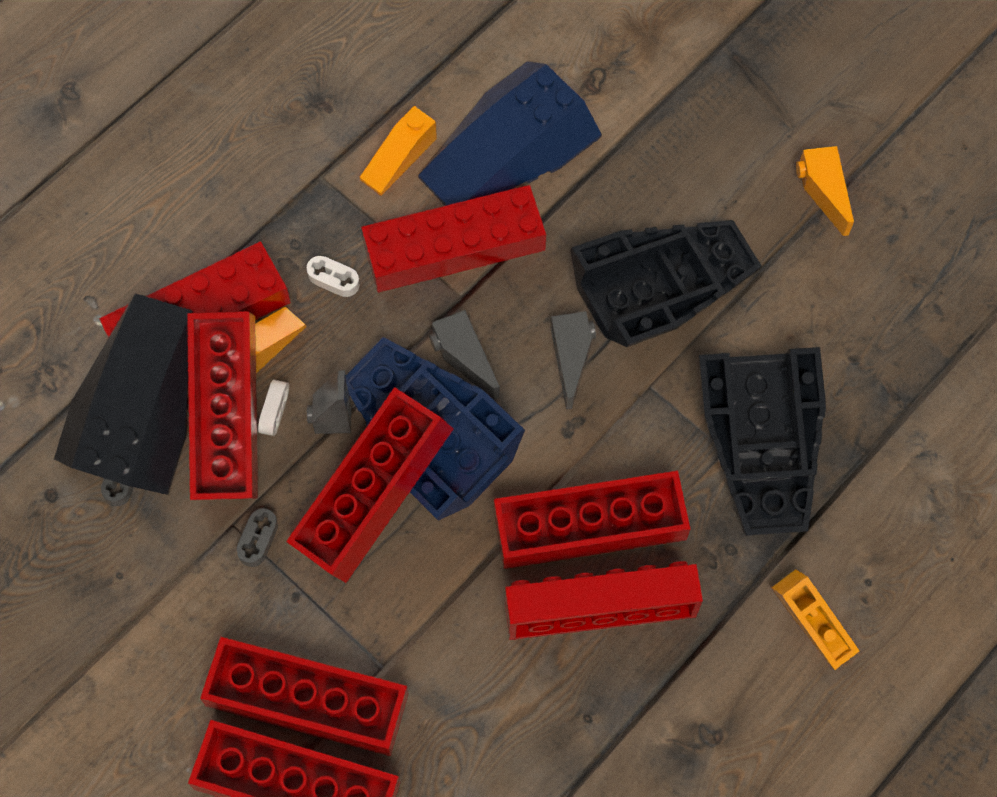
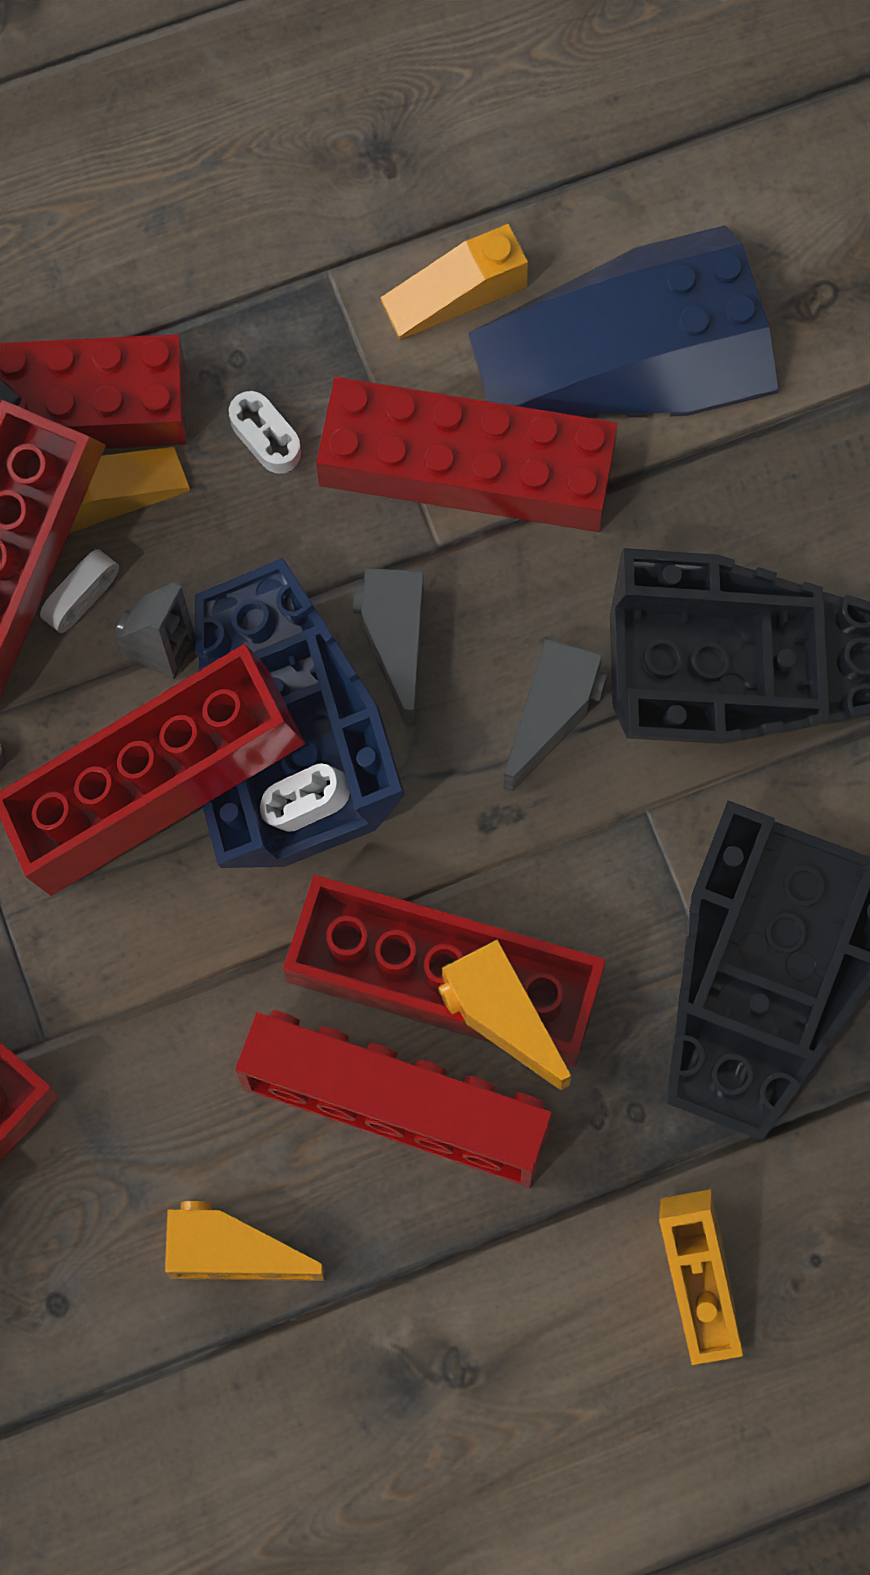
camera: 30 degrees right, 5 degrees up
(464, 457) = (306, 804): none -> white beam
(549, 730) = (219, 1247): none -> light orange slope
(639, 522) = (498, 1008): none -> light orange slope

